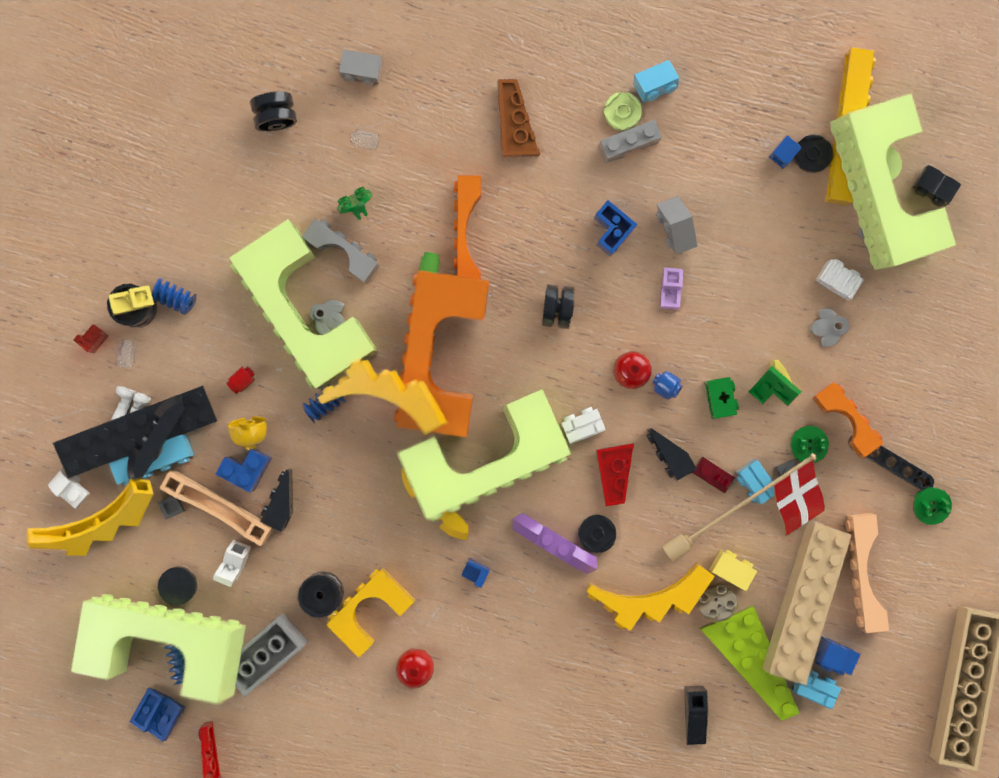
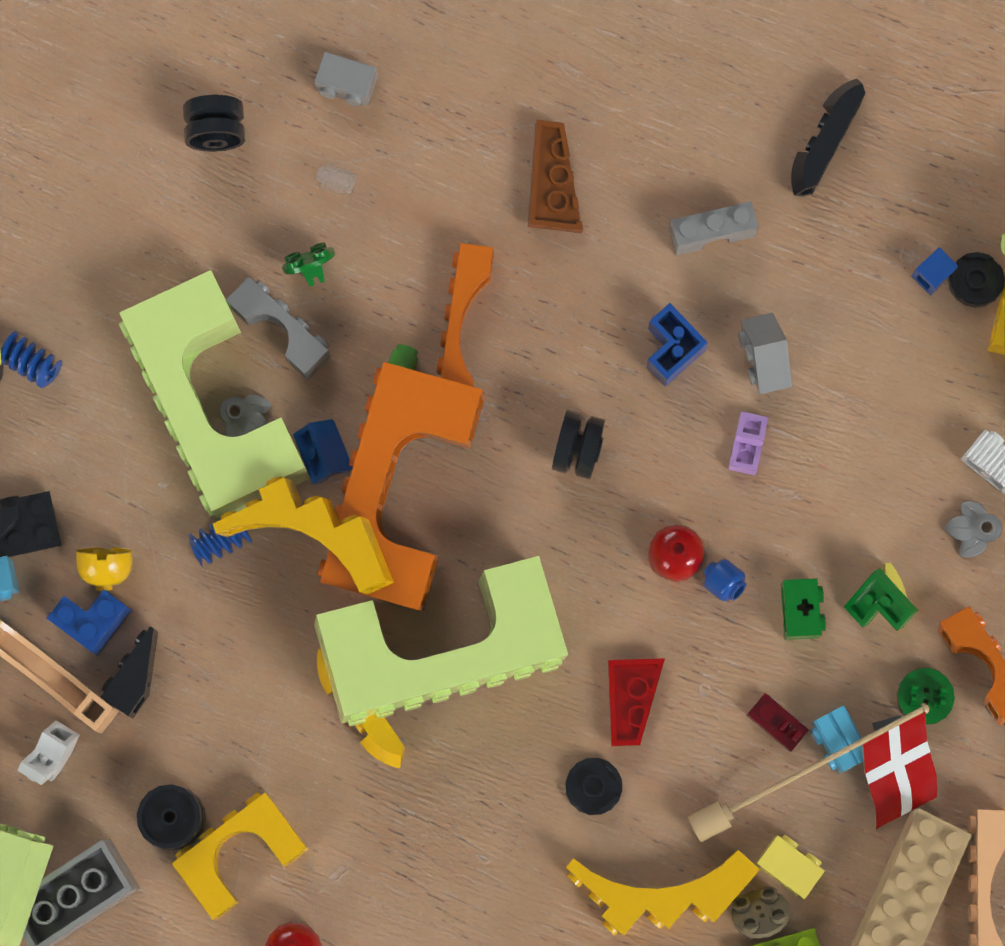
camera: 10 degrees right, 10 degrees down
(241, 379) = (106, 490): red brick -> none
(384, 332) = (322, 450): none -> blue panel
(476, 572) = (404, 818): blue panel -> none
(554, 543) = (528, 791): medium lavender brick -> none
(583, 425) = (592, 622): white brick -> none
(622, 111) = (708, 186): yellowish green tile -> none
(656, 81) = (760, 150): medium azure brick -> none
(676, 459) = (723, 687): black slope -> none
(708, 42) = (811, 165): none -> black brick

